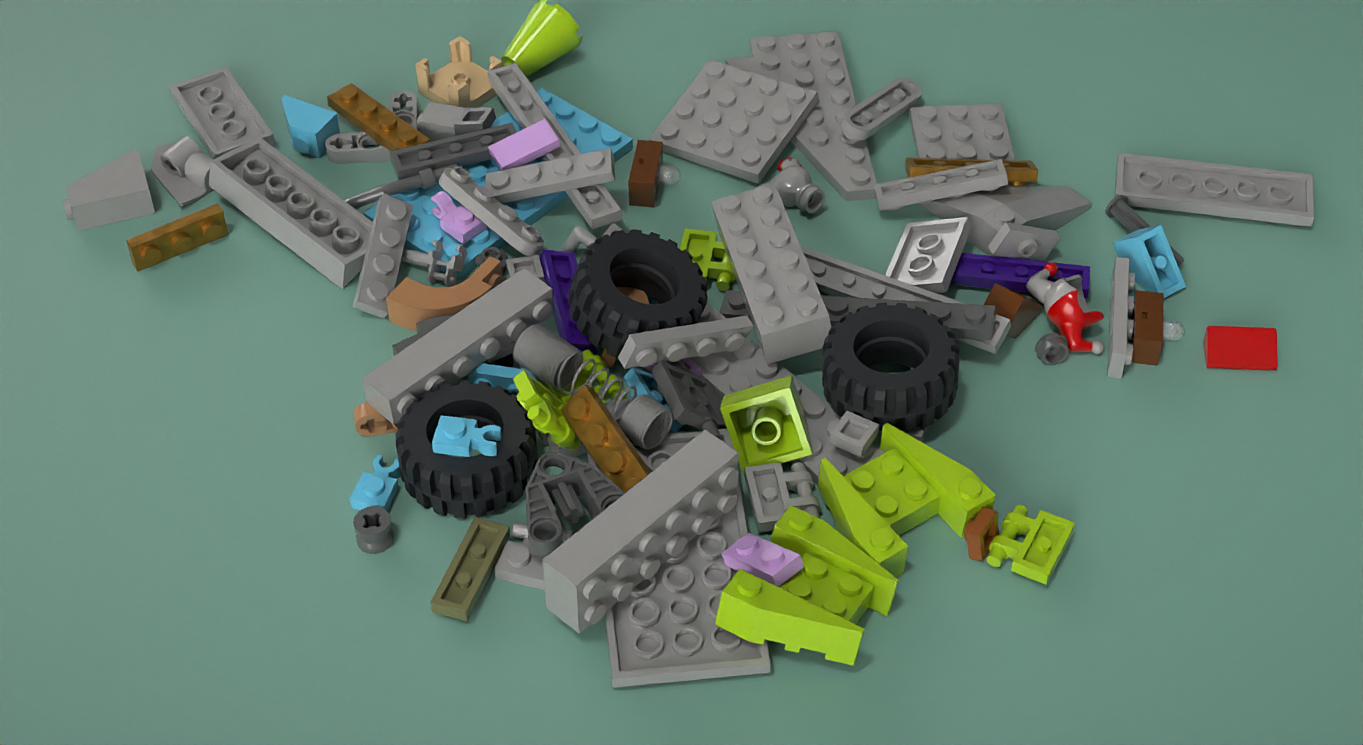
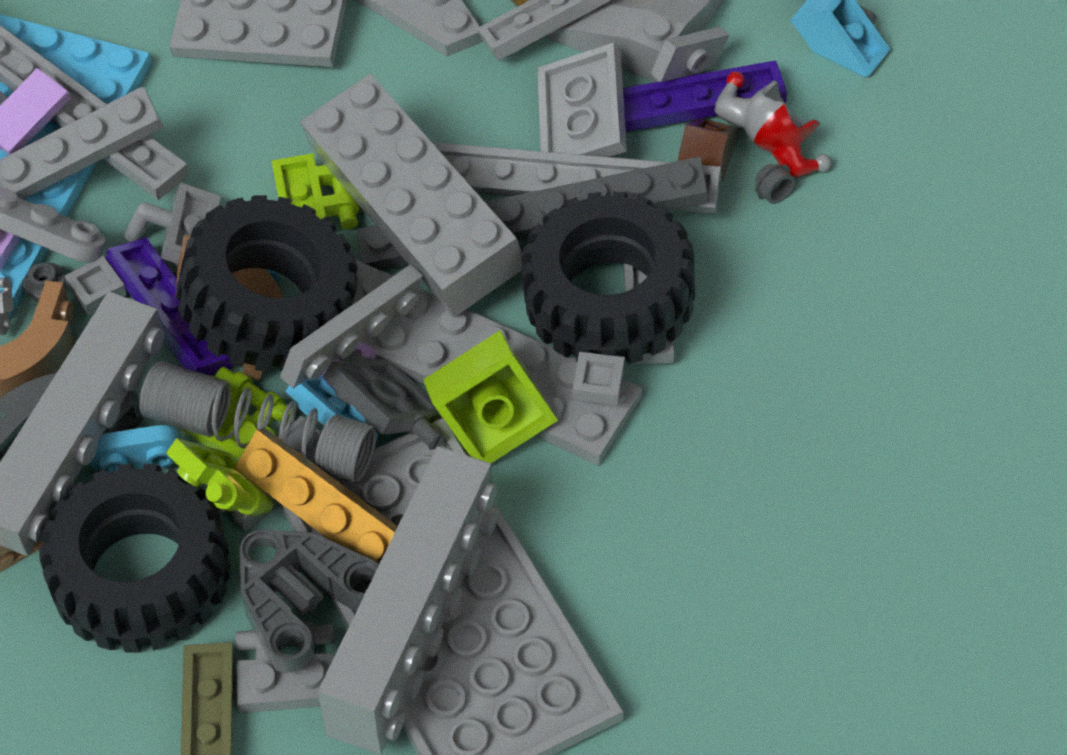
camera: 20 degrees left, 10 degrees up
(373, 530) = (67, 716): dark grey wheel -> none
(376, 488) = (39, 647): medium azure plate -> none
(461, 435) = (130, 552): medium azure plate -> none
(648, 173) = (193, 97): reddish brown piece -> none
(762, 559) = (563, 584): lavender plate -> none
(770, 496) = (531, 494): light grey plate -> none
(797, 187) = (381, 56): light grey animal -> none
(819, 602) = (645, 607): lime wedge -> none
(898, 494) = (673, 442): lime wedge -> none
(980, 533) = (793, 455): dark orange plate -> none
(1041, 548) = (867, 452): lime plate -> none
(1119, 325) = (832, 107): light grey plate -> none
(1151, 328) = (875, 121): reddish brown piece -> none
(1240, 347) = (985, 113): red slope -> none

